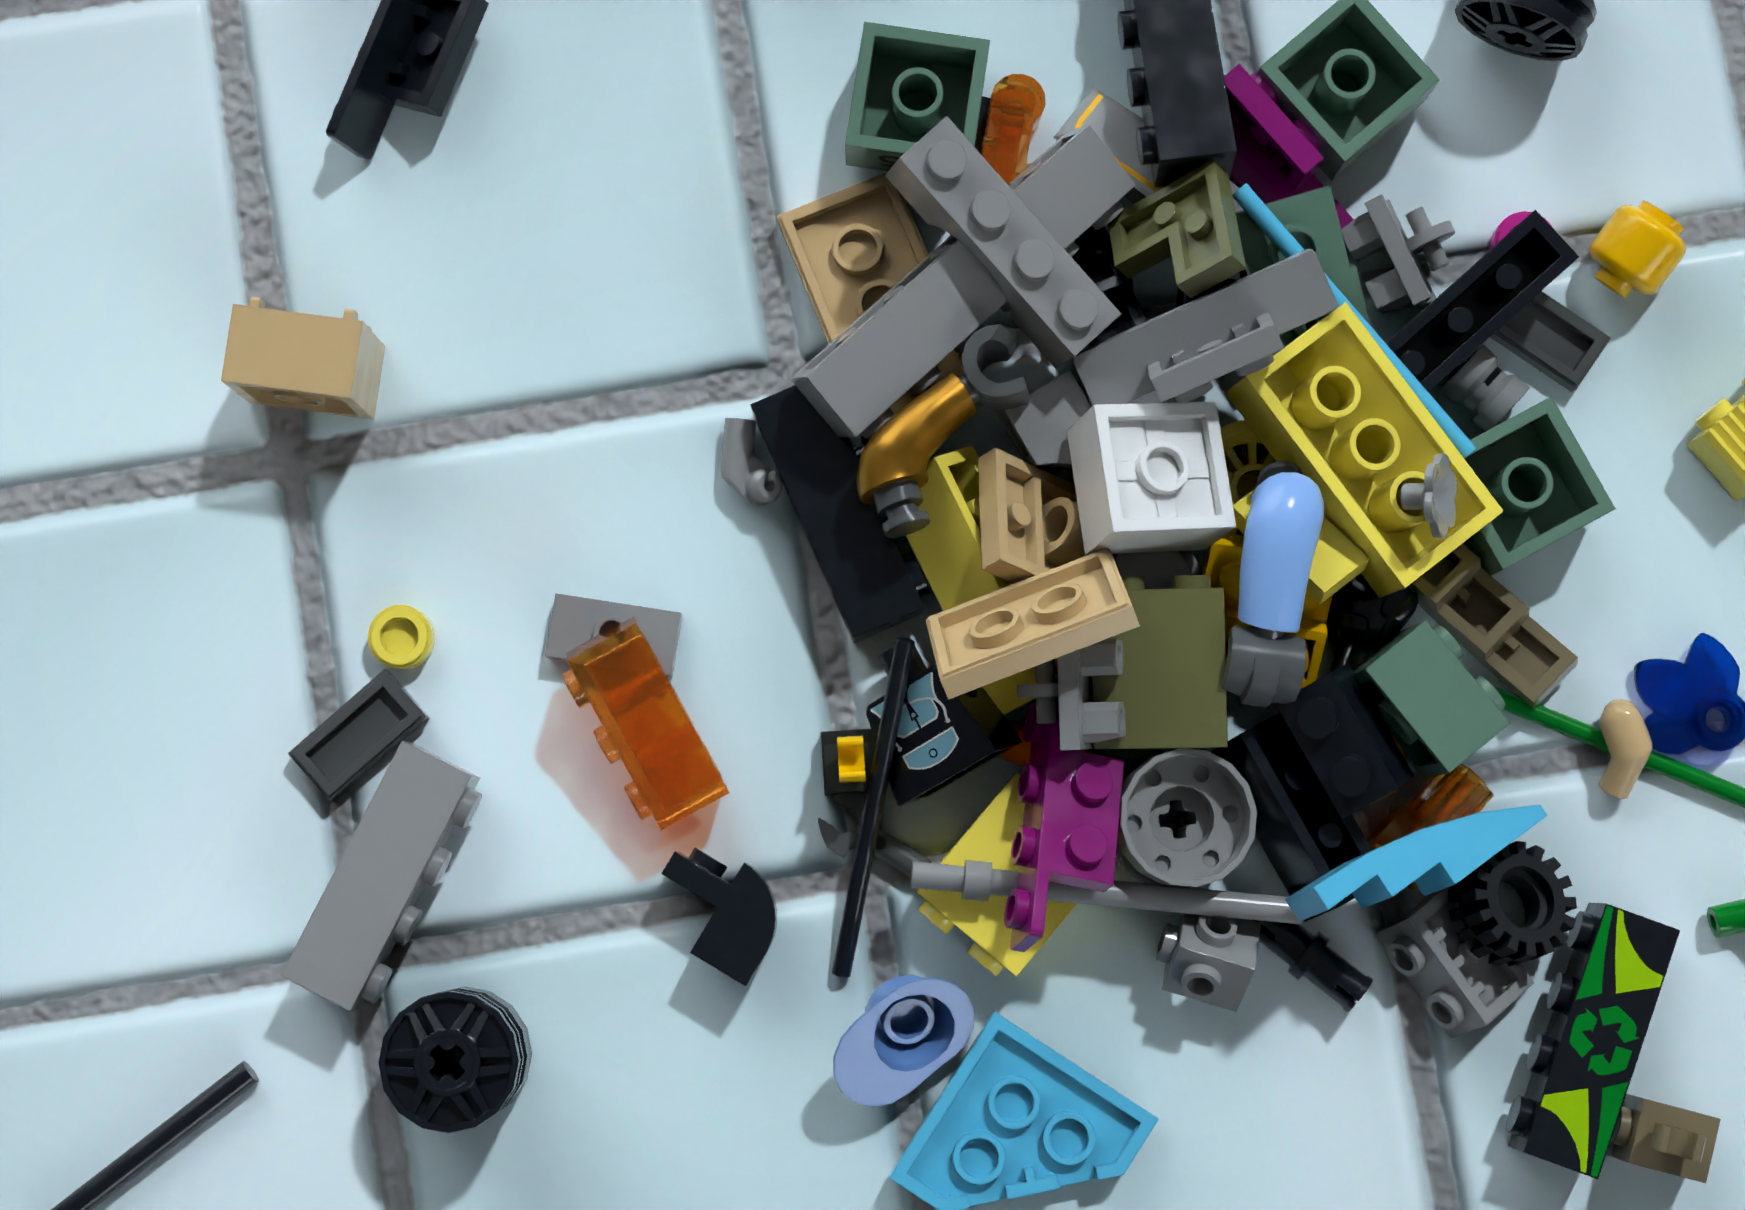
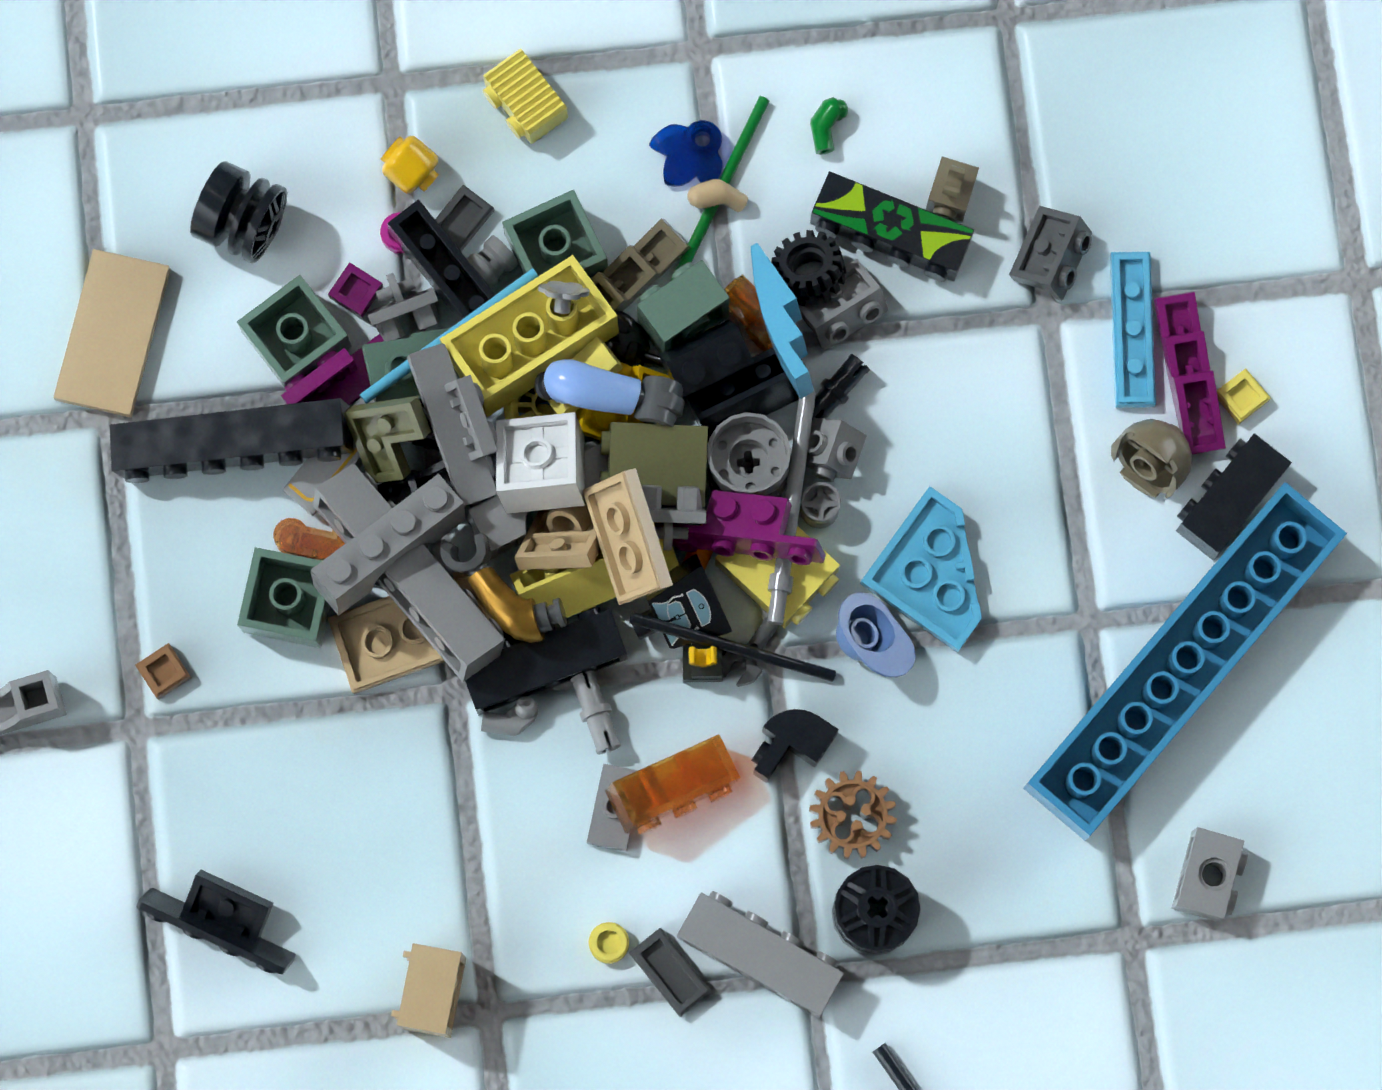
camera: 85 degrees left, 5 degrees down
(603, 978) = (846, 792): none -> medium nougat gear
(762, 596) = (595, 712): none -> light grey pin
(1126, 941) = (820, 497): none -> light grey wheel
(1423, 177) = (355, 290): none -> magenta plate

